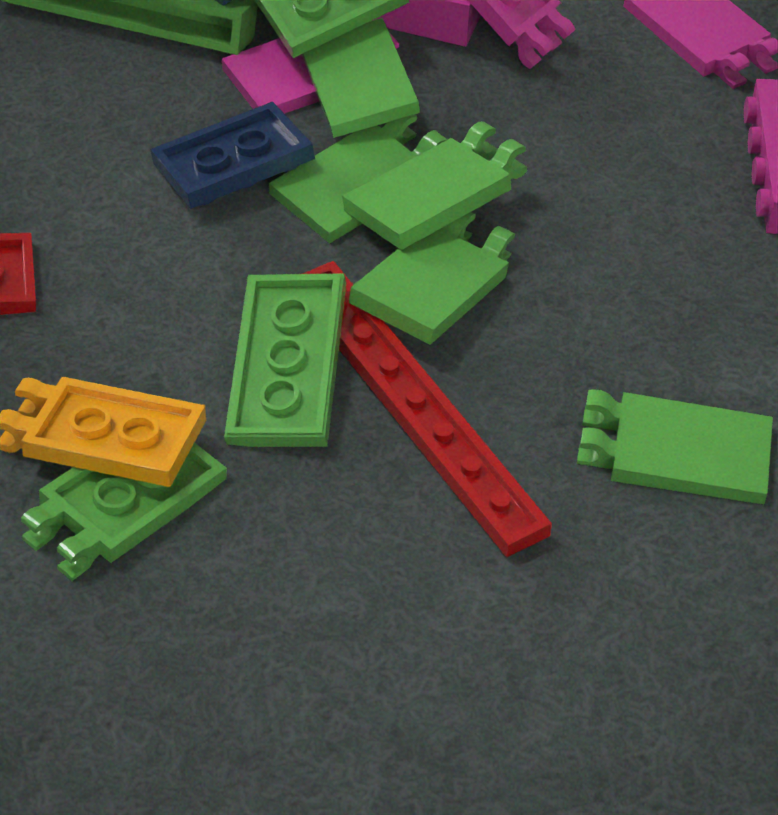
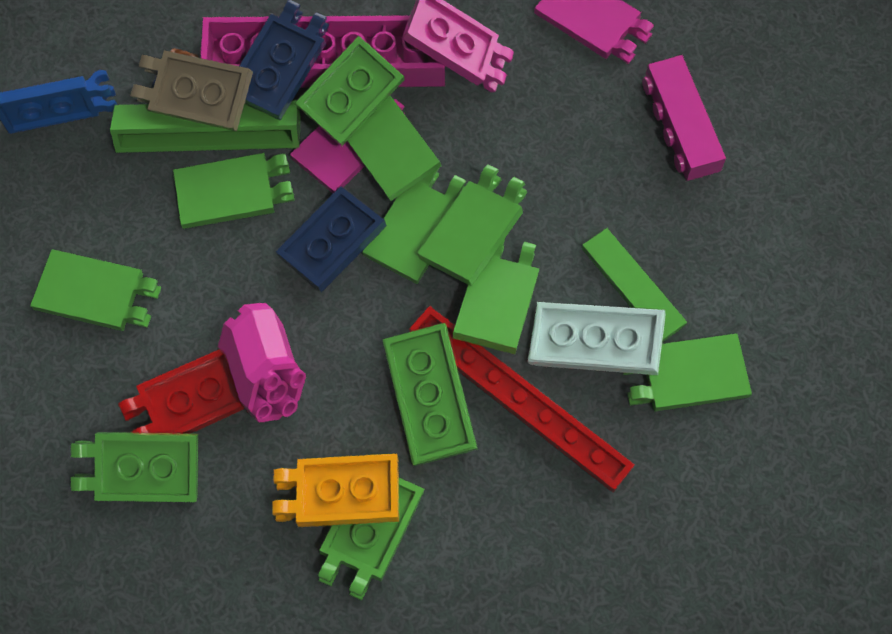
camera: 15 degrees left, 20 degrees up
(67, 252) = (262, 363): none -> dark pink brick
(127, 76) = (230, 189): none -> bright green tile
(559, 359) = (597, 338): none -> light aqua tile
(641, 325) = (630, 279): none -> bright green tile

